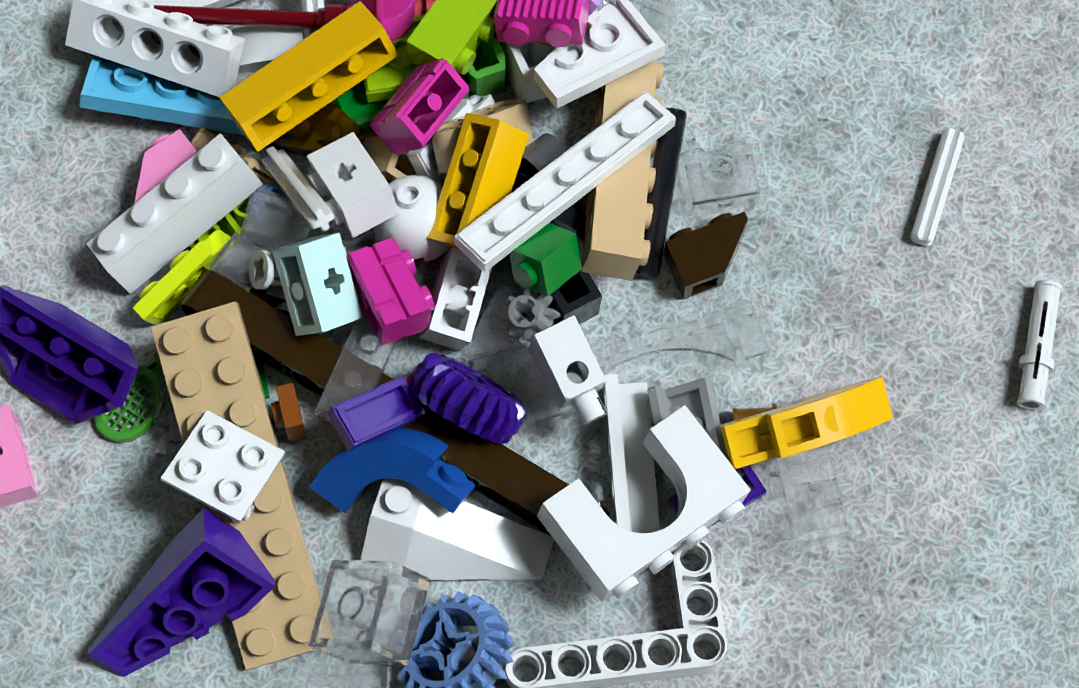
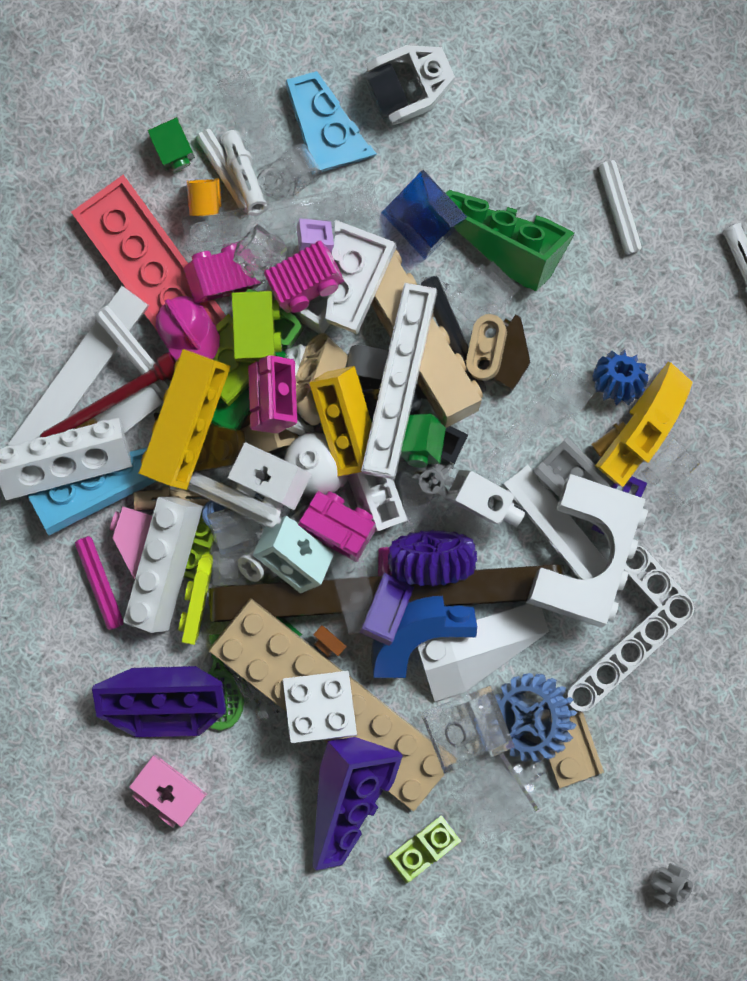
camera: 30 degrees left, 15 degrees up
(97, 196) = (99, 583): none -> dark pink axle
(684, 220) = (486, 348): none -> tan plate
(718, 54) = (424, 214): none -> clear blue slope
(793, 150) = (517, 246): none -> green wedge
(814, 355) = (620, 377): none -> blue gear

